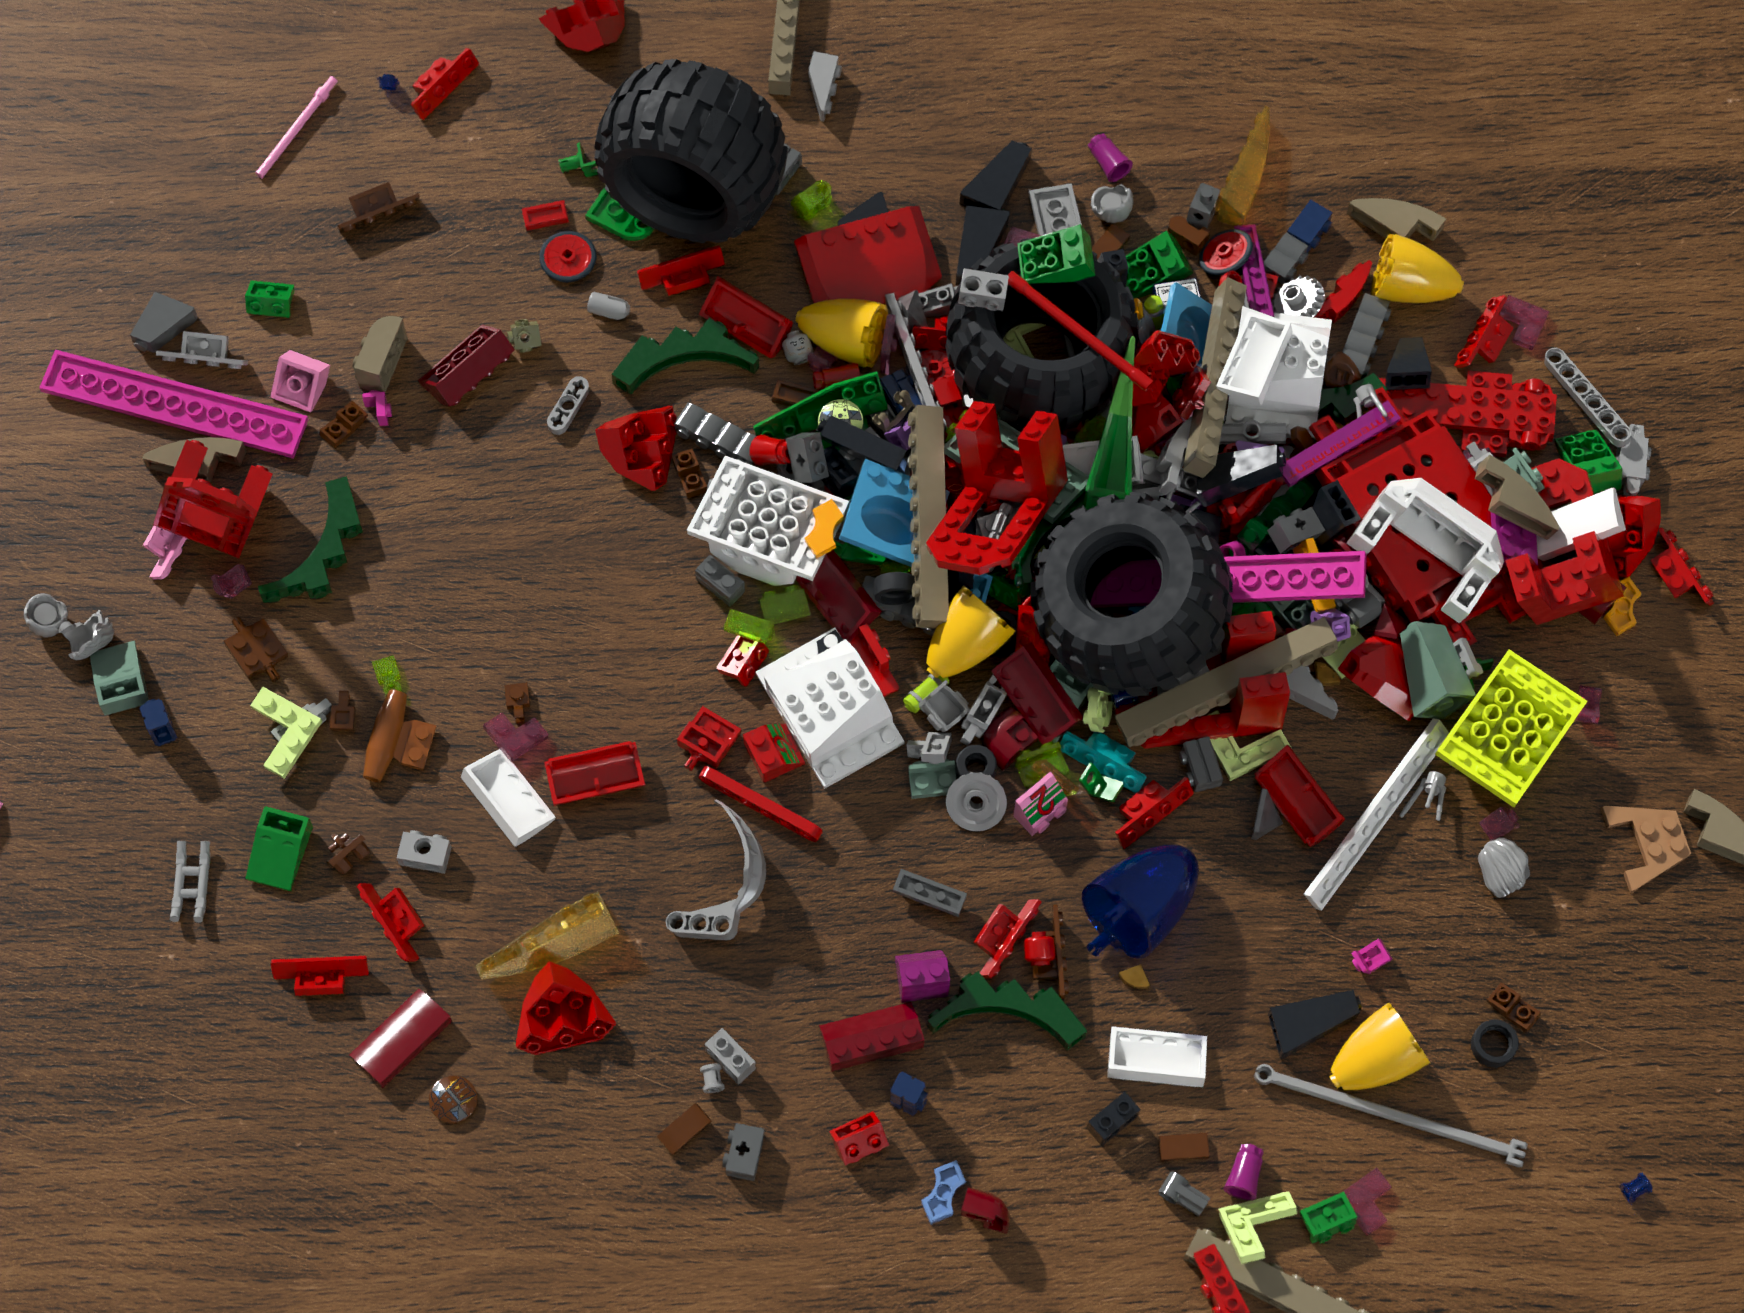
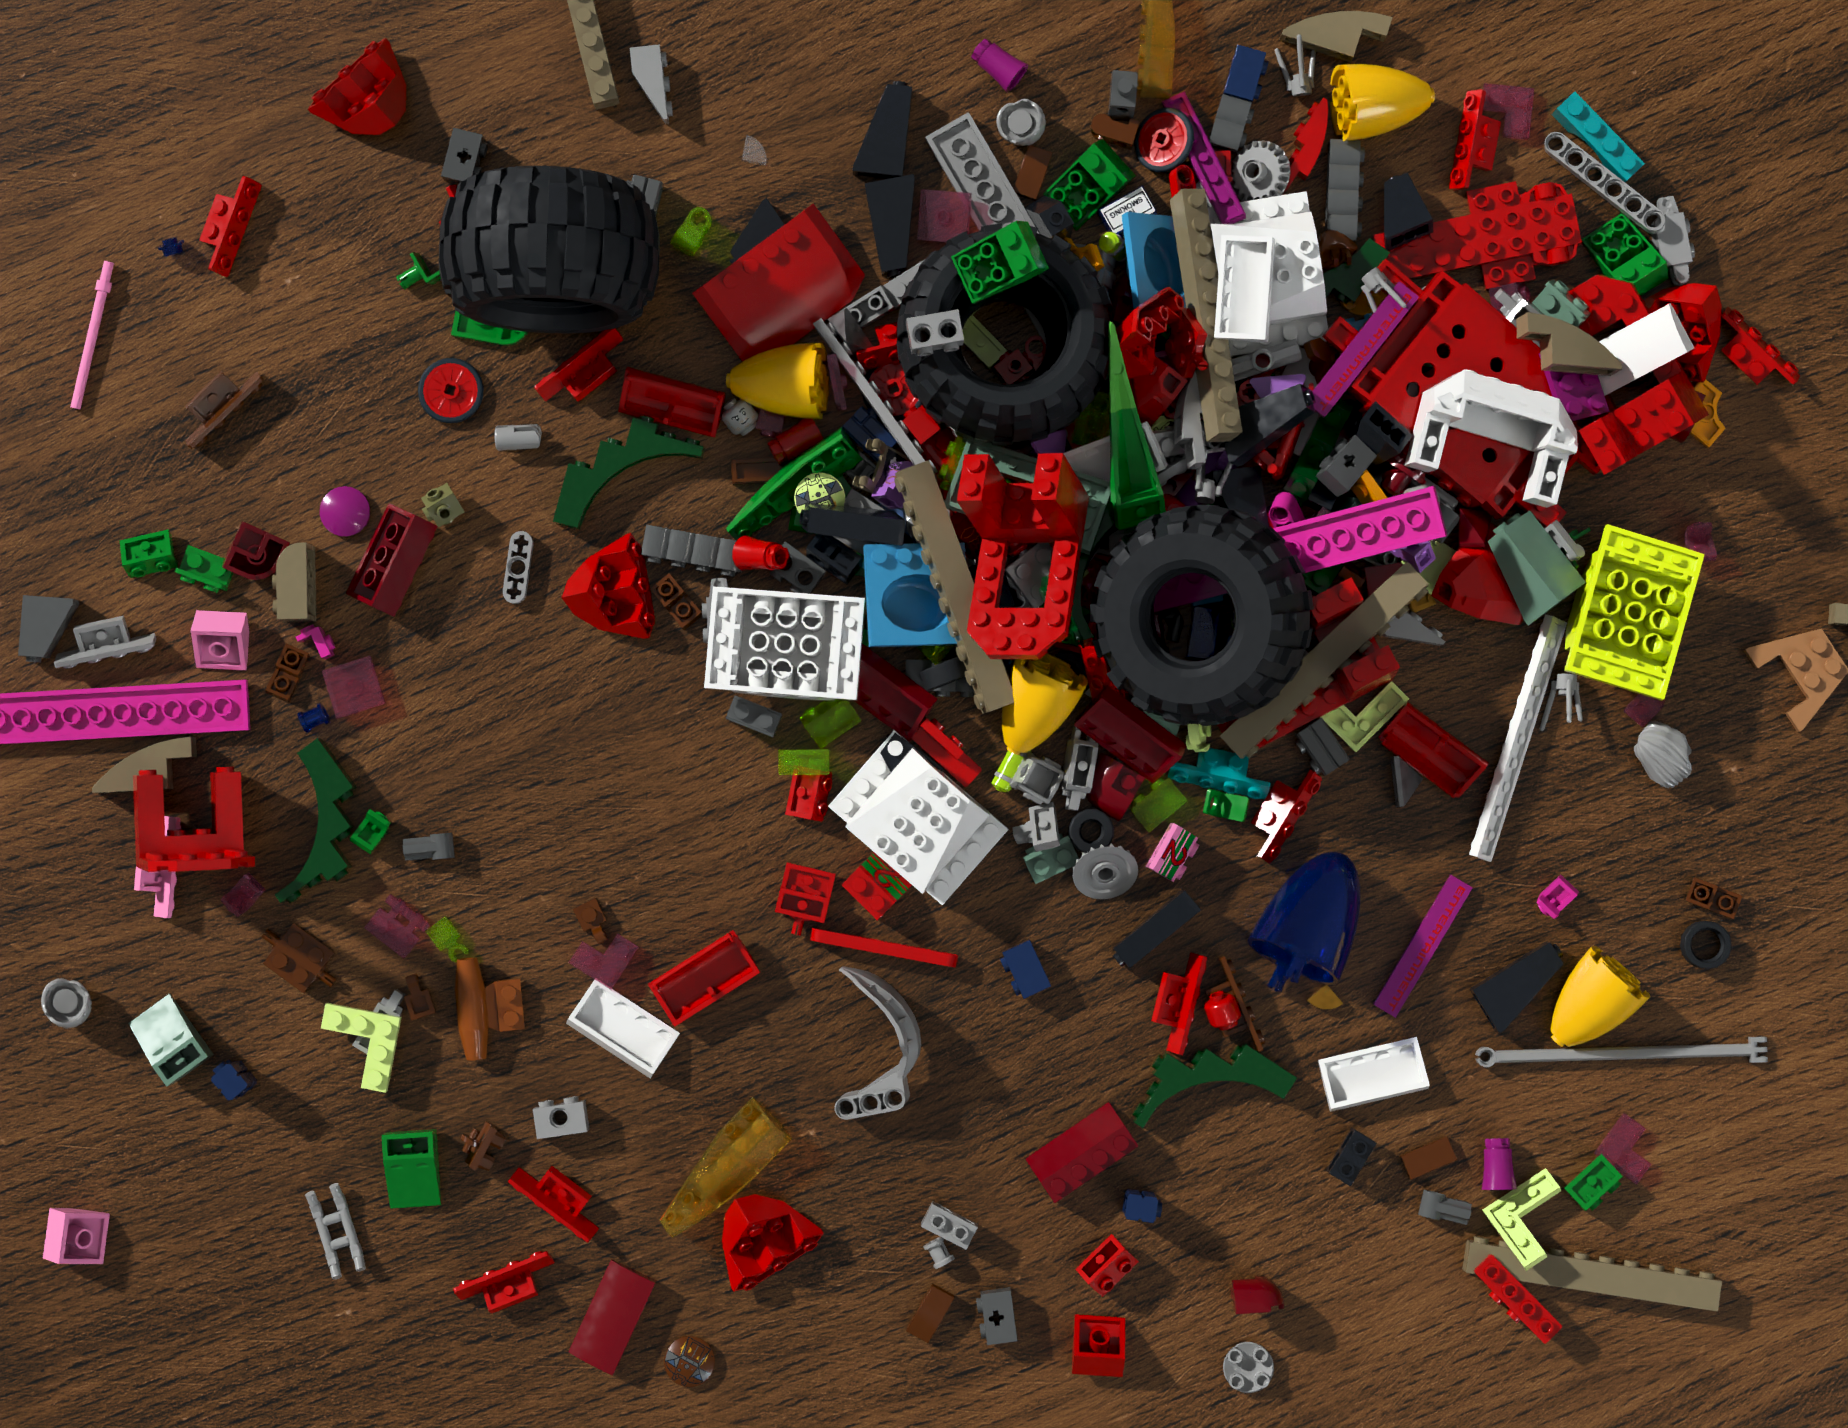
camera: 15 degrees left, 20 degrees up
(87, 637) = (120, 1010): light grey hair -> none
(312, 325) = (204, 568): none -> green bracket
(343, 655) = (392, 932): none -> clear pink plate
(350, 464) = (313, 717): none -> clear blue bush
(354, 319) = (253, 552): none -> dark red brick
(360, 567) = (371, 831): none -> green bracket
(393, 452) = (353, 687): none -> clear pink plate
(409, 597) = (435, 847): none -> dark grey piece
(443, 318) = (344, 511): none -> magenta dish
(545, 215) = (406, 348): red tile -> none
(807, 457) = (800, 557): dark grey brick -> none
(825, 1210) = (1098, 1345): none -> red slope
(827, 518) = (849, 630): light orange tile -> none
(878, 862) = (1025, 968): none -> dark blue brick
(884, 161) = (754, 152): none -> clear tile
(922, 976) = (1111, 1073): magenta slope -> none
(929, 892) = (1090, 985): dark grey plate -> none
(948, 1181) = (1207, 1274): medium blue tile -> none
(956, 1277) = (1248, 1367): none -> light grey dish
(1000, 521) = (1032, 570): light grey axle -> none
(1005, 863) = (1155, 929): none -> black slope
(1043, 767) = (1176, 818): clear orange tile -> none
(1120, 363) = (979, 312): red piece -> none
(1237, 962) = (1422, 946): none -> magenta tile
(1354, 248) = (1302, 82): none -> light grey plant
(1581, 343) = (1584, 122): none -> teal arch

